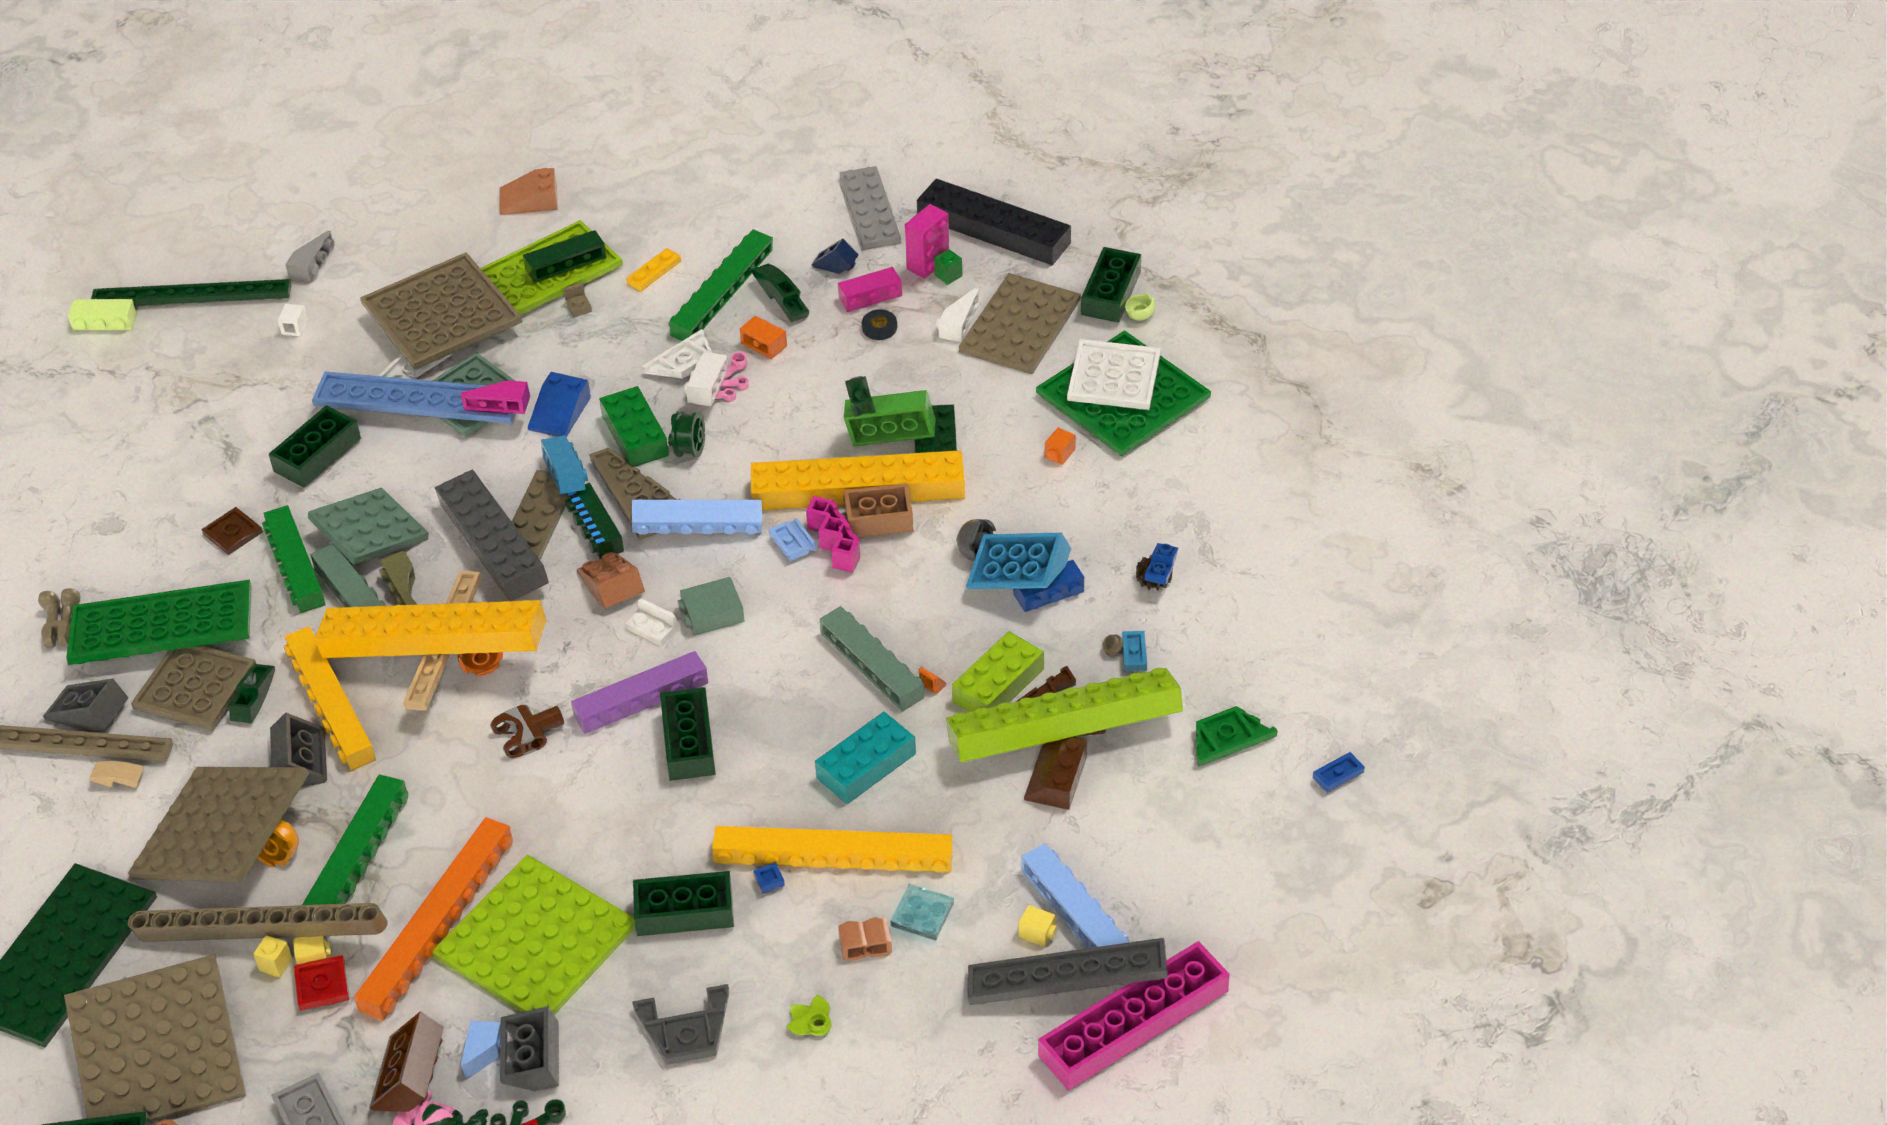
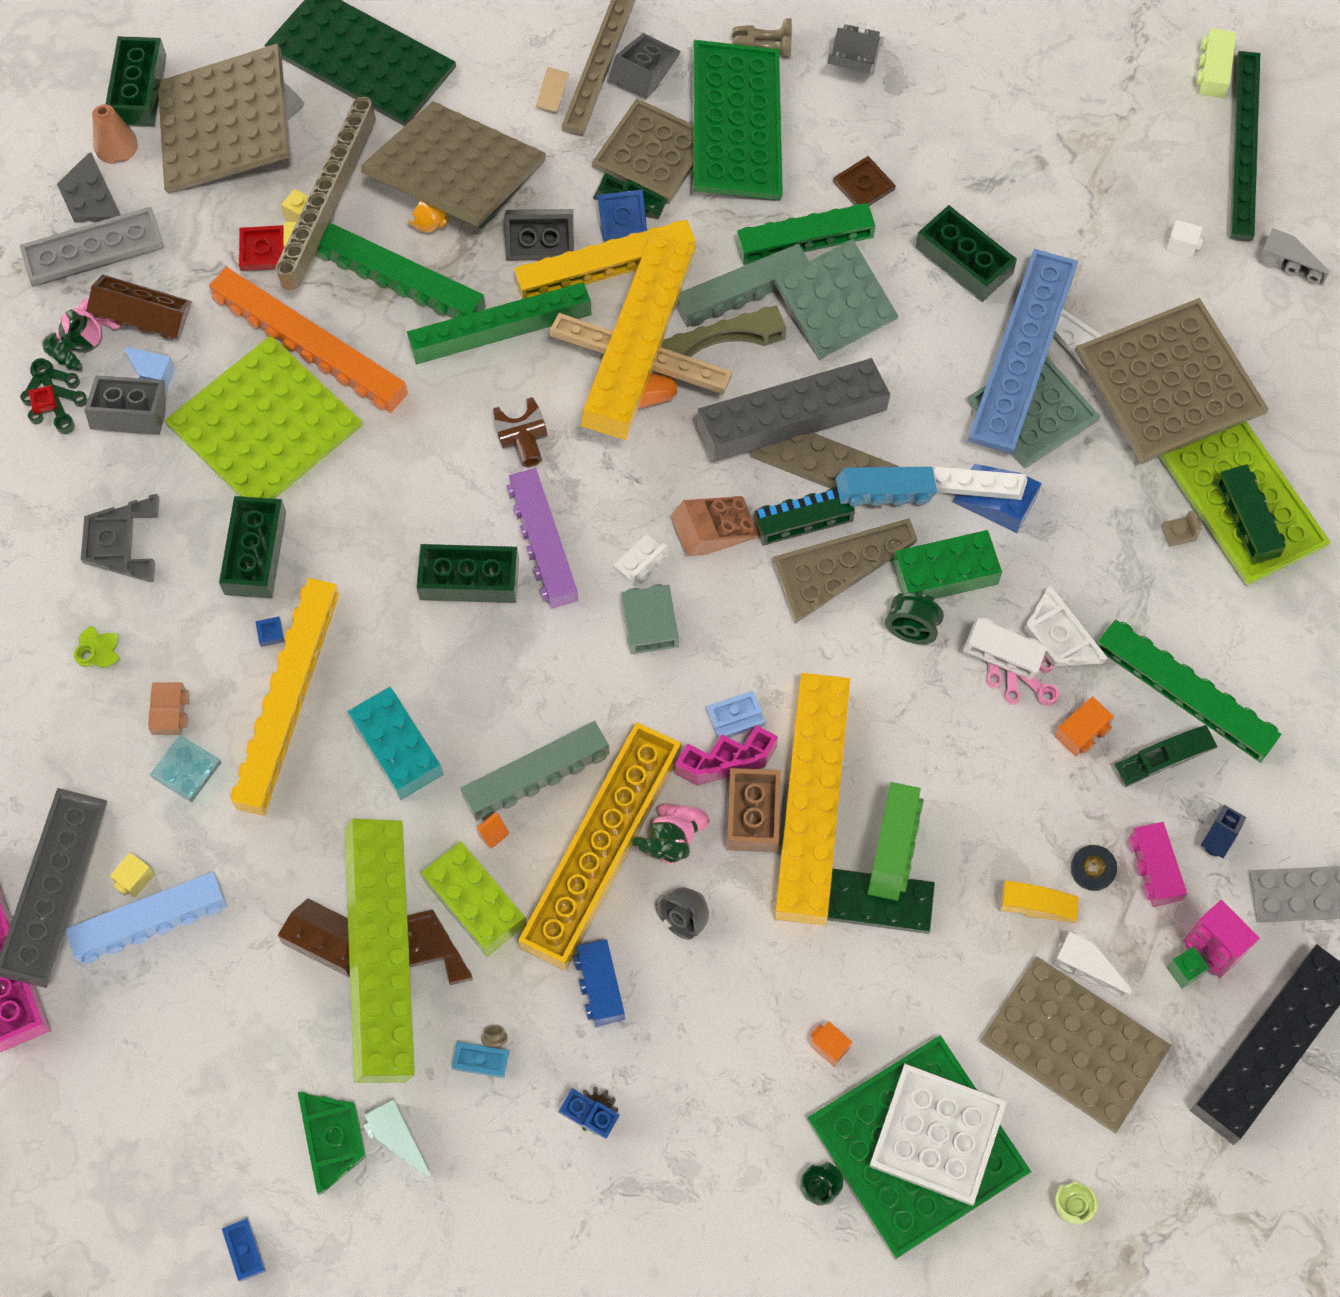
camera: 100 degrees right, 20 degrees up
(79, 544) = (856, 49): none -> dark grey bracket
(277, 689) = (622, 214): none -> blue tile
(408, 764) = (498, 323): none -> green brick
(498, 397) = (993, 425): dark pink slope -> none
(553, 407) = (980, 483): none -> white plate
(653, 269) = (1234, 620): yellow plate -> none
(696, 516) = (779, 614): light blue brick -> none
(860, 395) = (898, 793): dark green hips -> none
(912, 554) = (672, 832): none -> hair
(916, 349) = (1039, 902): none -> yellow slope
(930, 599) = (600, 846): none -> yellow brick
(1018, 561) = (621, 945): dark azure slope -> none
(1111, 284) = (1121, 1172): dark green brick -> none
(1169, 435) = (821, 1184): none -> dark green hair
(1211, 692) = (392, 1133): none -> light aqua slope

